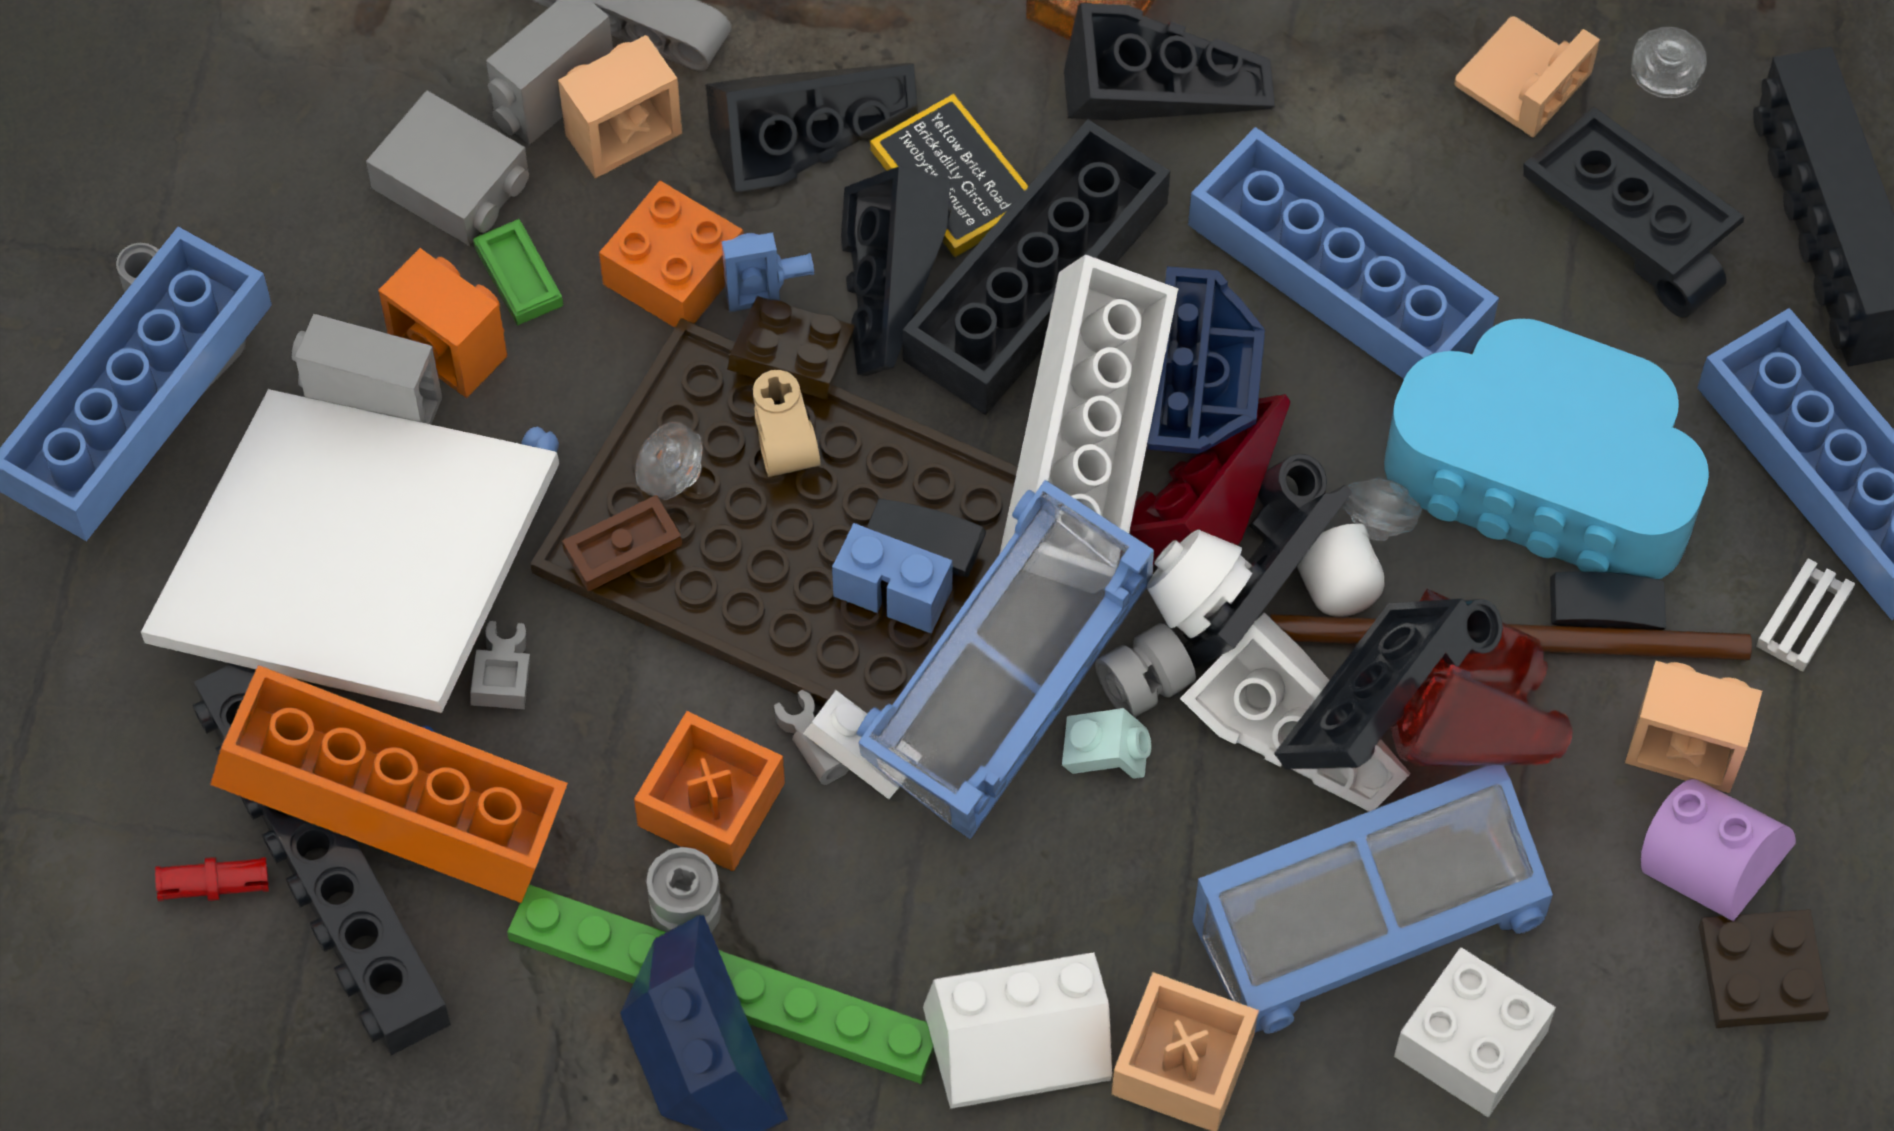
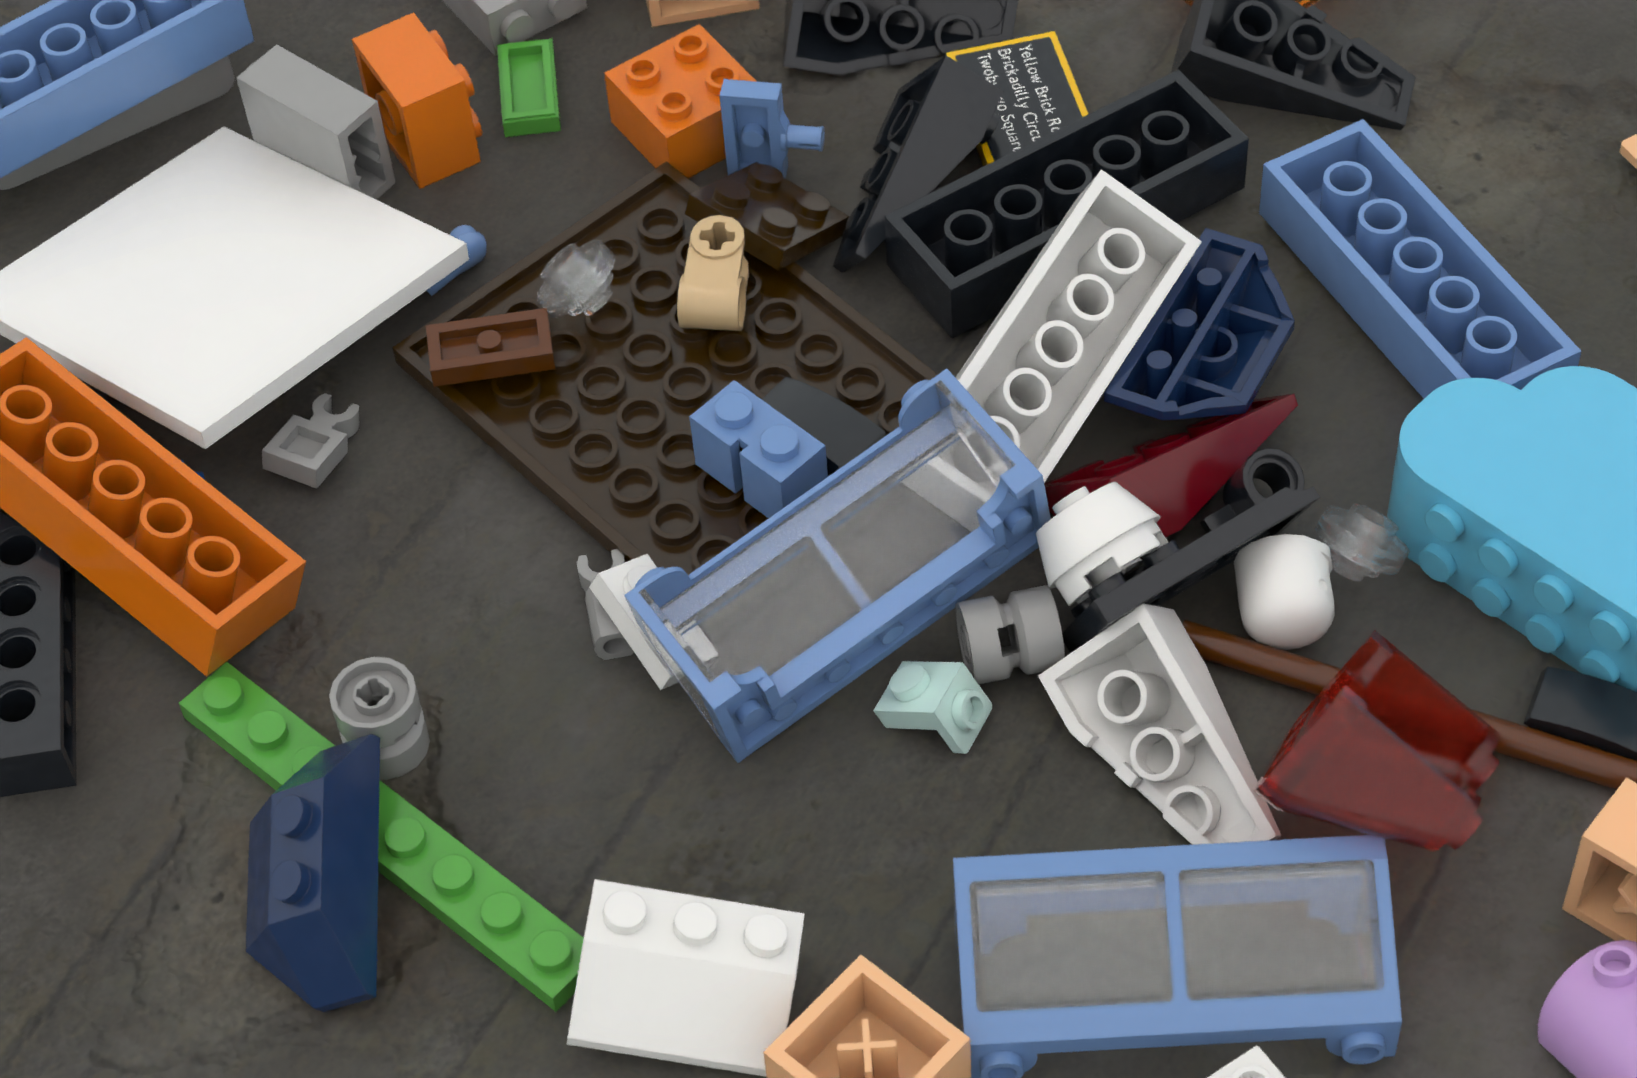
camera: 25 degrees right, 10 degrees down
(709, 790) = (461, 618): orange brick -> none
(1383, 676) = (1254, 708): black hinge -> none

